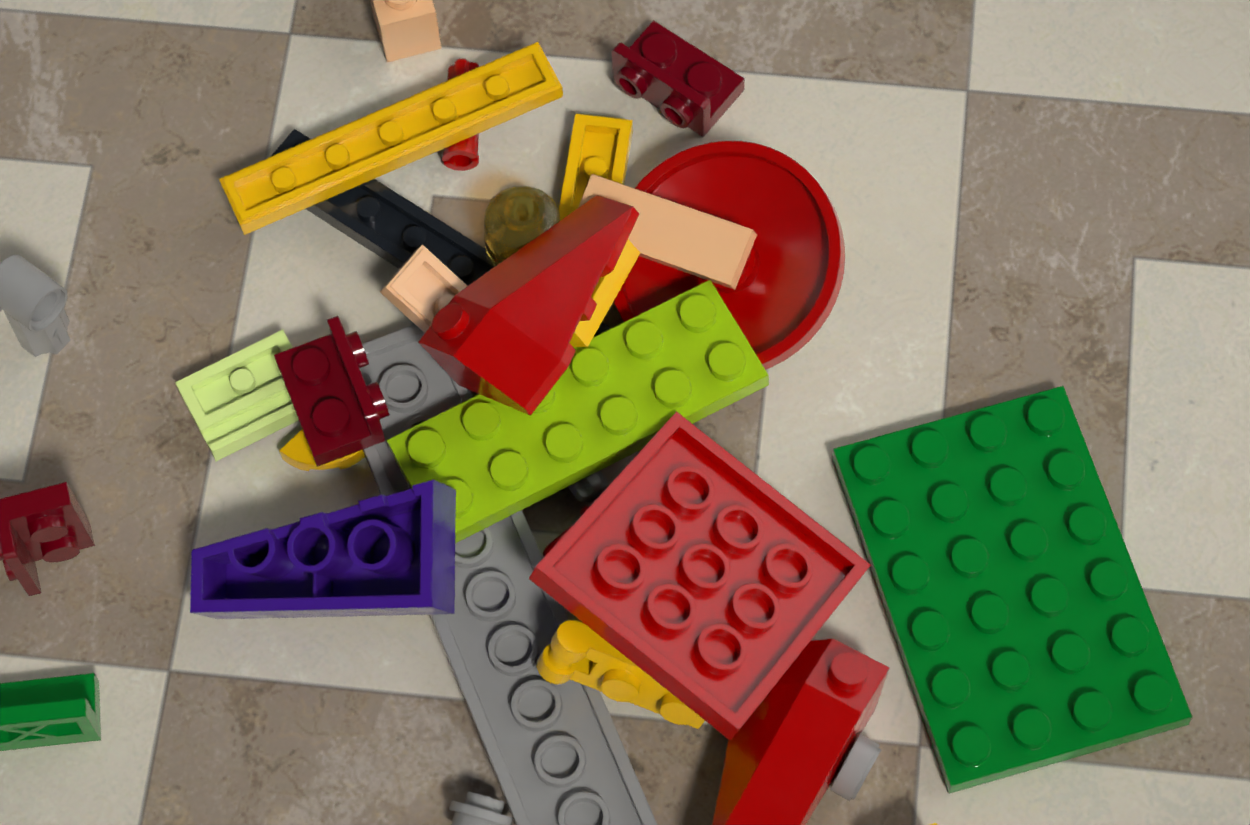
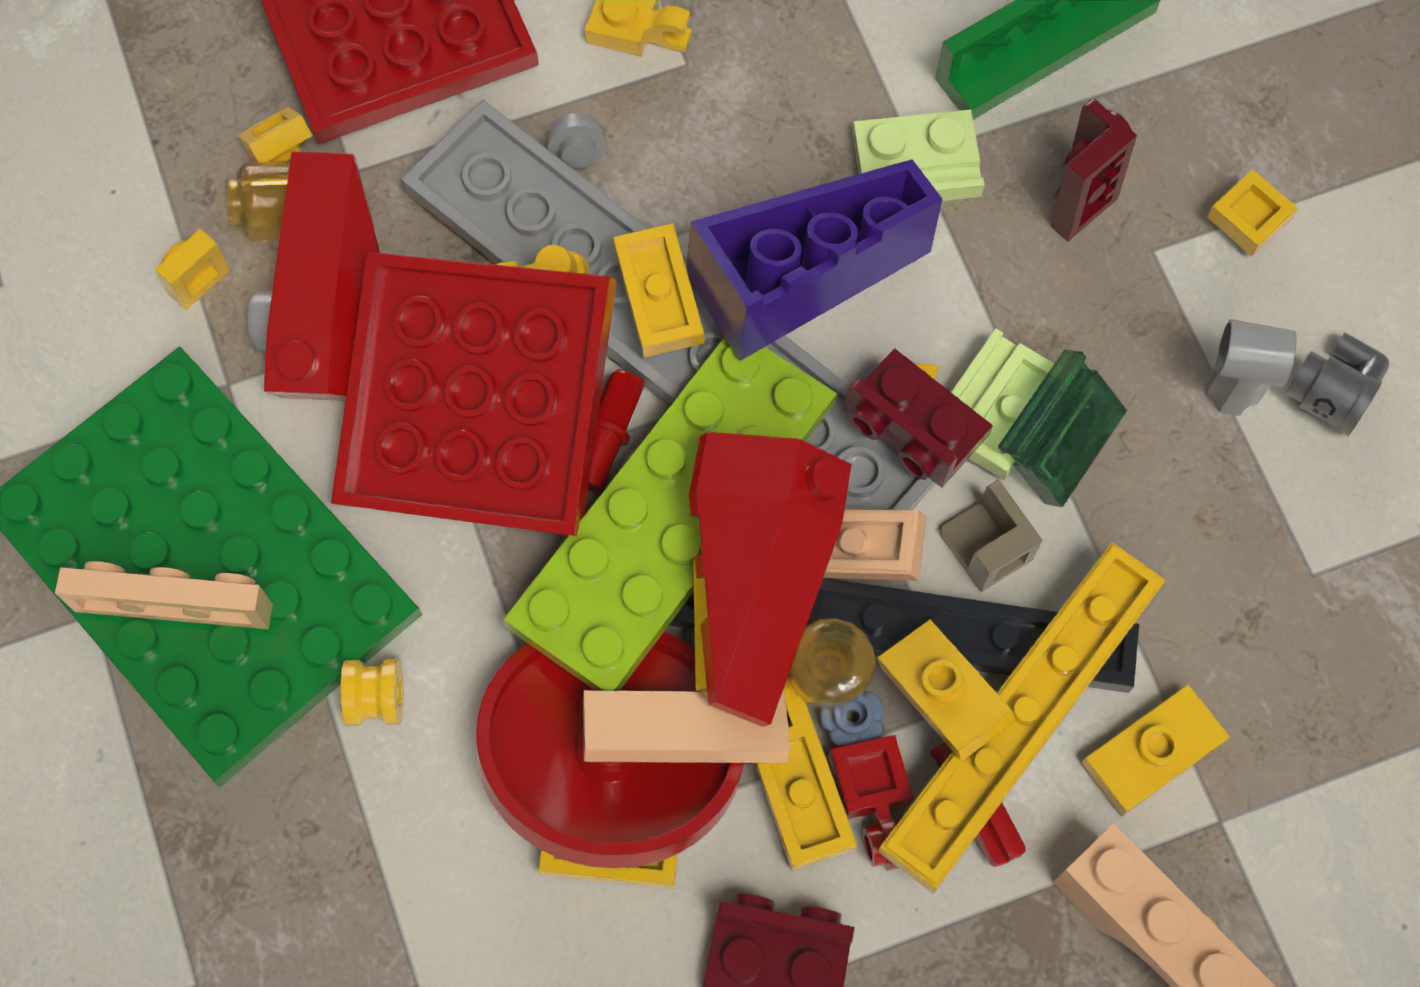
camera: 150 degrees right, 5 degrees up
(172, 658) = (937, 142): none -> yellowish green plate
(214, 341) = (1062, 428): none -> clear green plate
(305, 92) = (1155, 750): none -> yellow plate
(329, 288) = (992, 537): none -> dark tan panel
(444, 170) = (946, 690): none -> yellow plate
(487, 604) = (658, 290): none -> yellow plate
(539, 154) = (872, 782): none -> red plate
(902, 393) = (372, 692): none -> yellow wheel
(1048, 522) = (165, 595): none -> light nougat plate

